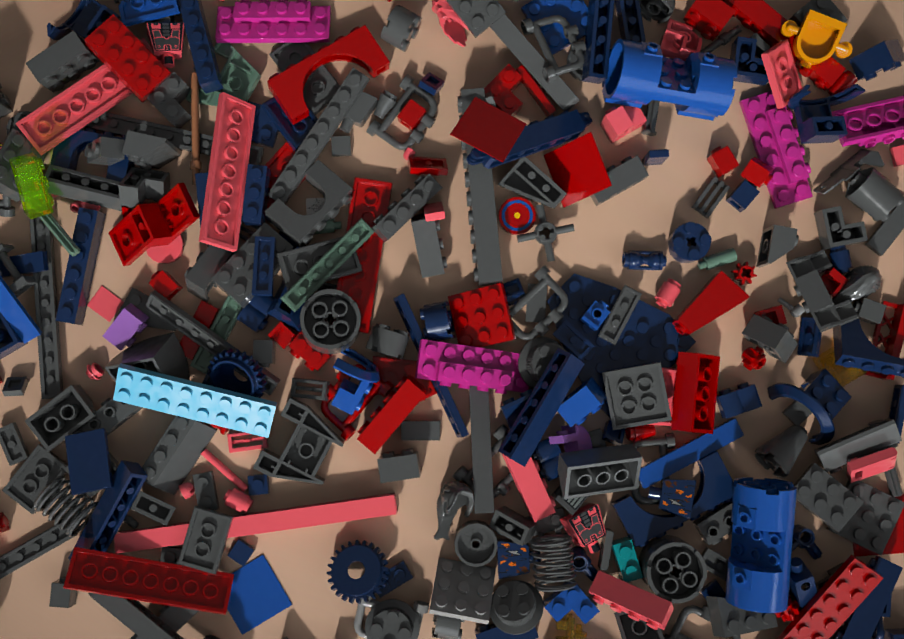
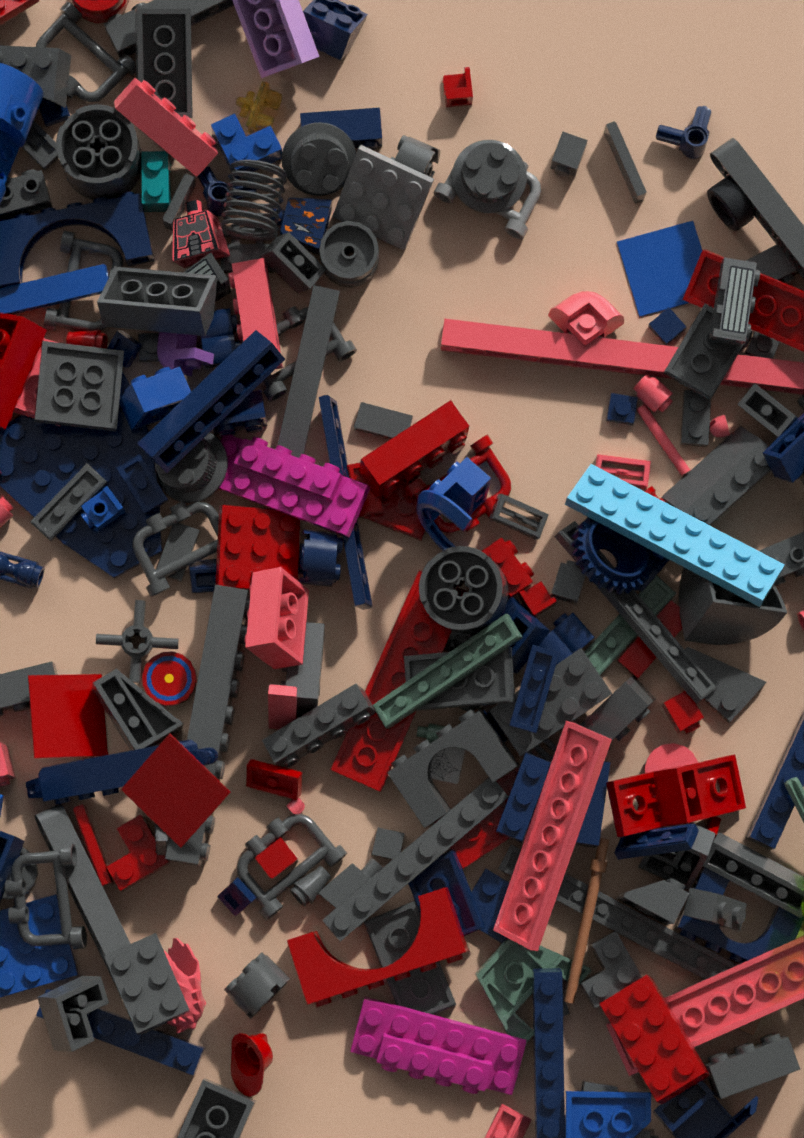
camera: 170 degrees left, 5 degrees down
(74, 207) = (779, 855): coral arm -> none
(105, 303) = (774, 711): coral sticker -> none
(126, 326) = (749, 665): medium lavender brick -> none
(154, 188) = (657, 841): none -> dark blue tile
(166, 41) = (597, 1057): torso -> none
(191, 579) = (734, 302): none -> wedge
(298, 543) = (586, 316): none -> coral brick
(305, 448) = (543, 438): dark grey wedge -> none
(371, 579) = (502, 239): dark blue gear -> none
(388, 342) = (394, 549): dark grey brick -> none
(397, 576) = (474, 239): dark blue plate -> none
(399, 466) = (423, 379): dark grey brick -> none
(451, 498) = (369, 318): dark grey hair -> none
(454, 269) = (277, 618): none -> coral brick
(675, 496) = (68, 242): dark blue torso -> none

